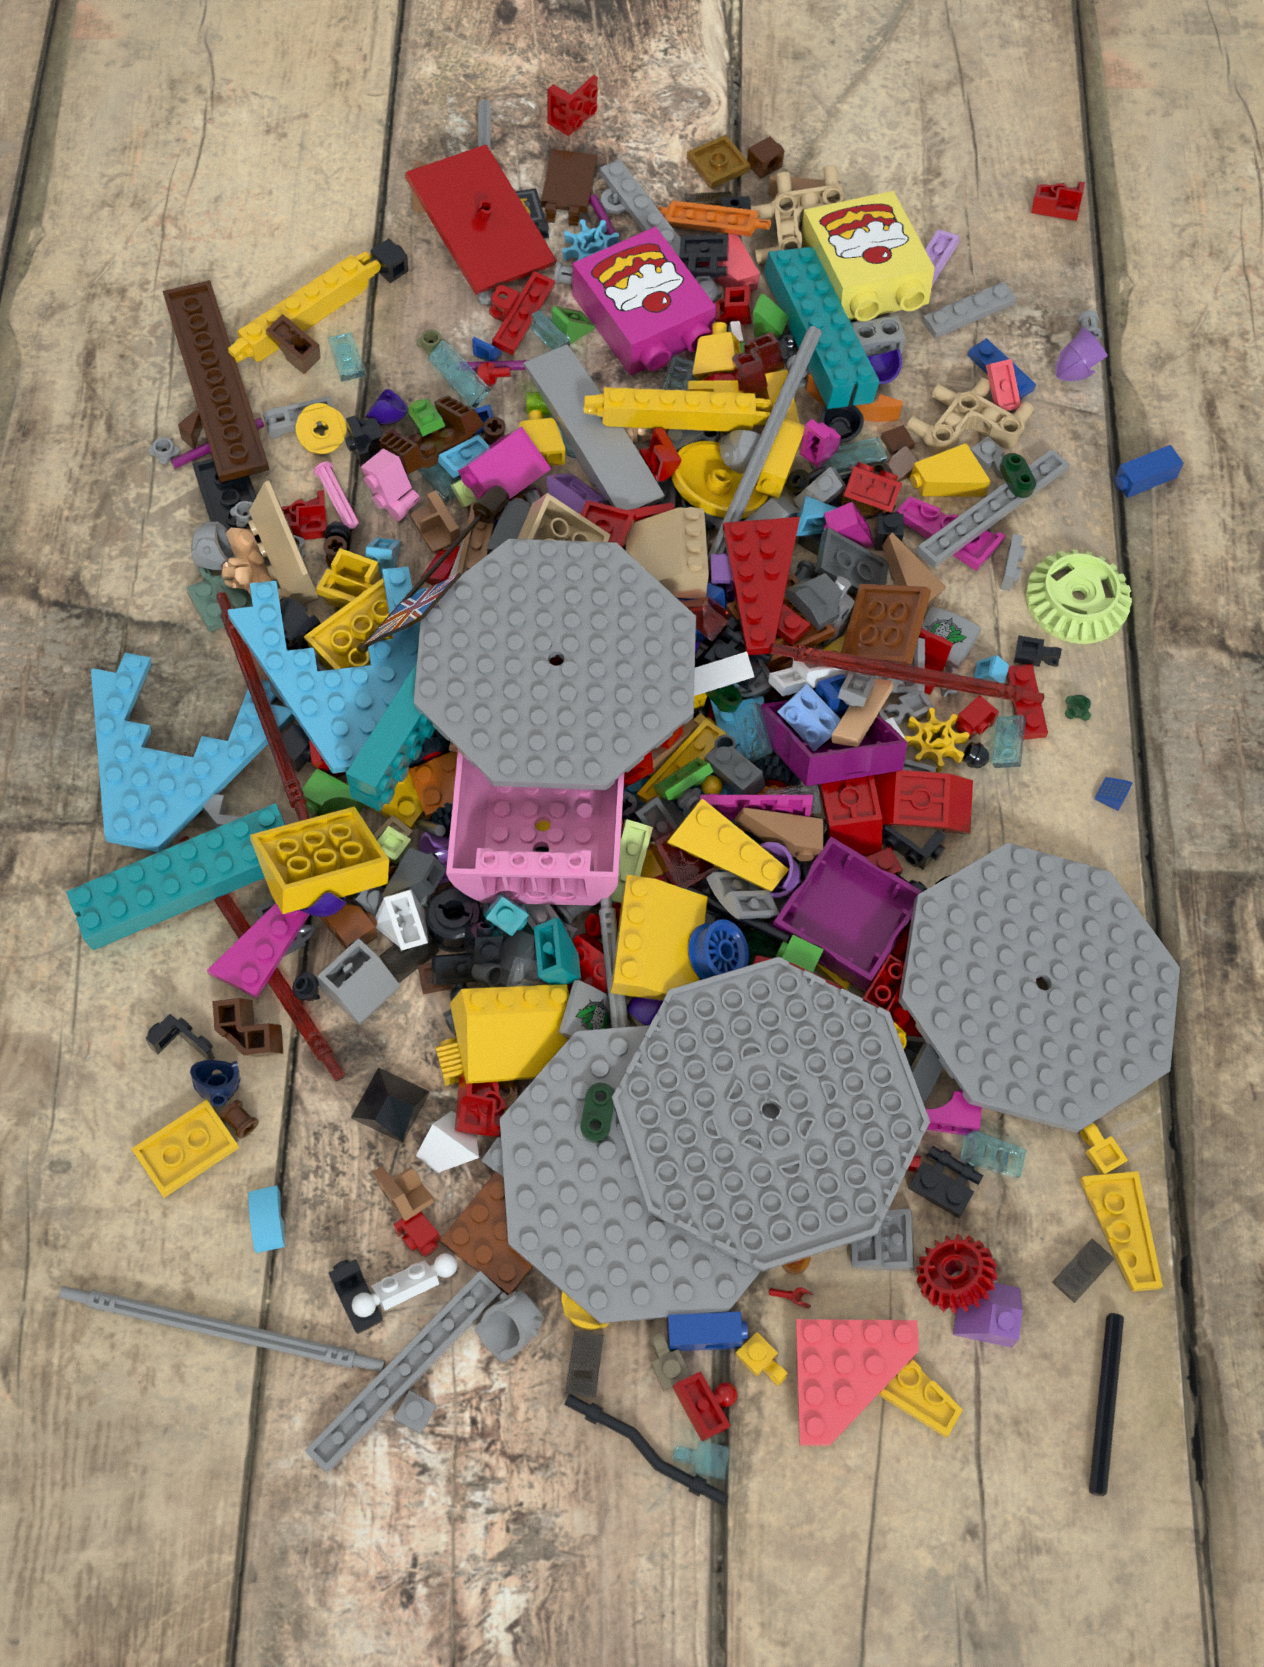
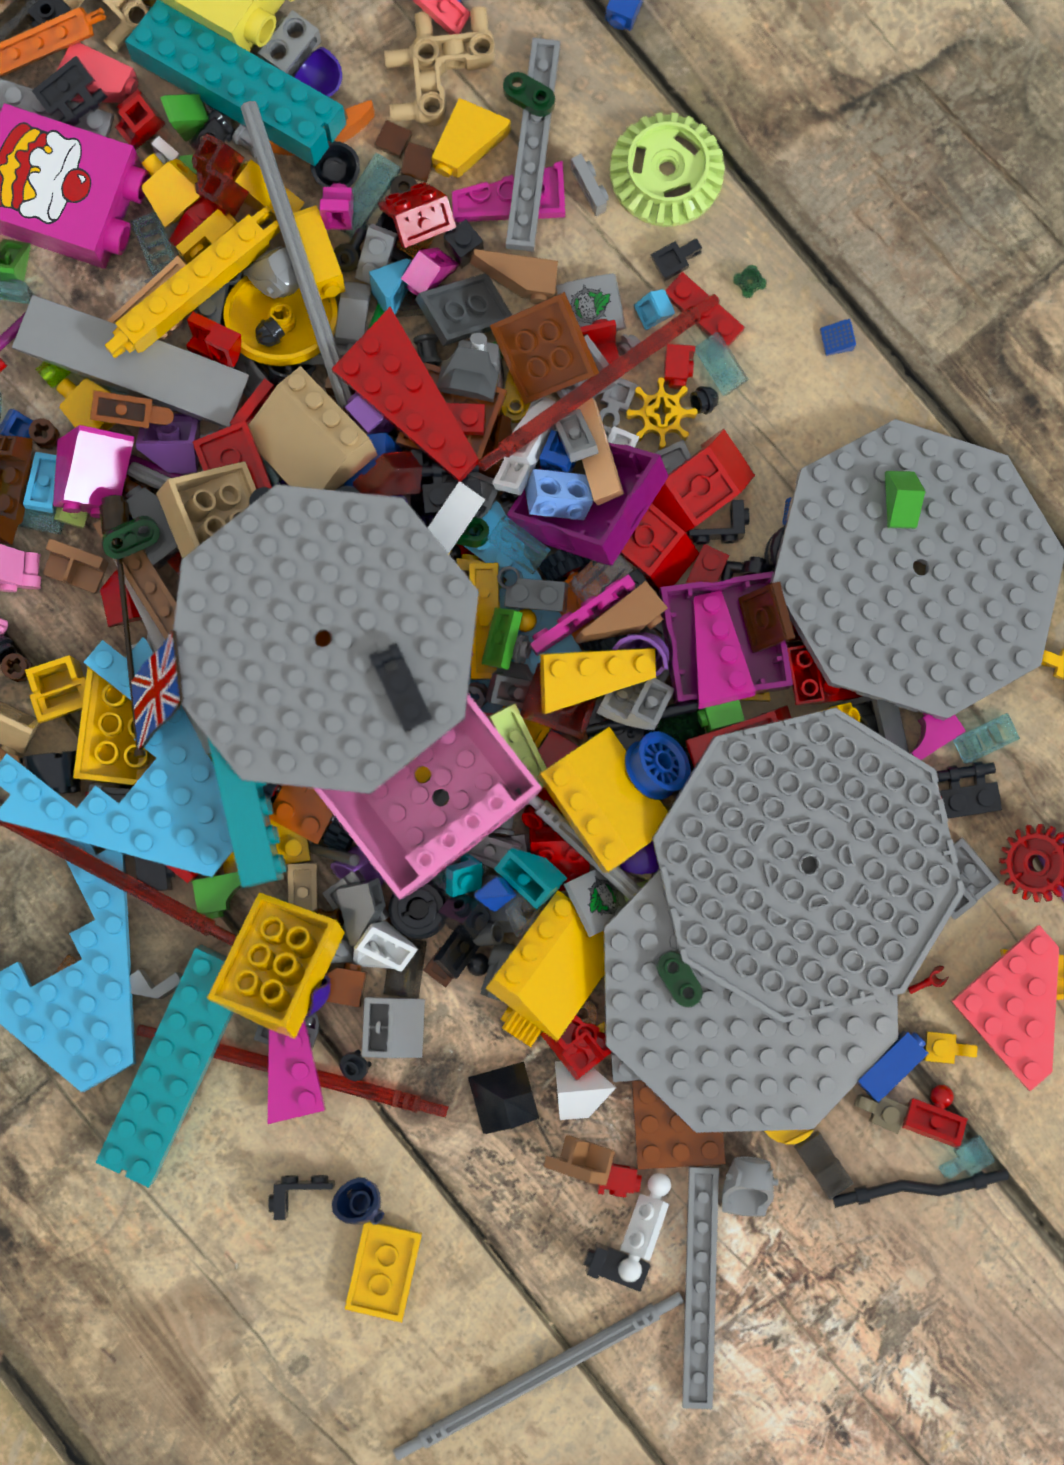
camera: 40 degrees left, 20 degrees up
(236, 1023) = (332, 1146): reddish brown brick -> none
(239, 1119) = (402, 1213): reddish brown bush -> none
(266, 1219) = (495, 1269): medium azure slope -> none
(384, 552) = (57, 633): medium azure slope -> none
(394, 844) = (315, 893): yellowish green plate -> none
(415, 1412) = (733, 1308): light grey plate -> none
(489, 518) = (131, 539): none -> dark green plate
(518, 941) = (495, 893): none -> blue slope
(562, 450) = (128, 410): none -> dark orange brick
(579, 727) = (401, 688): none -> black plate
(702, 478) = (269, 332): none -> black plate
(832, 916) = (719, 657): none -> dark pink wing
(891, 919) = (766, 617): none -> reddish brown tile
(989, 455) = (481, 87): light grey plate -> none
(1067, 922) = (903, 499): none -> bright green slope

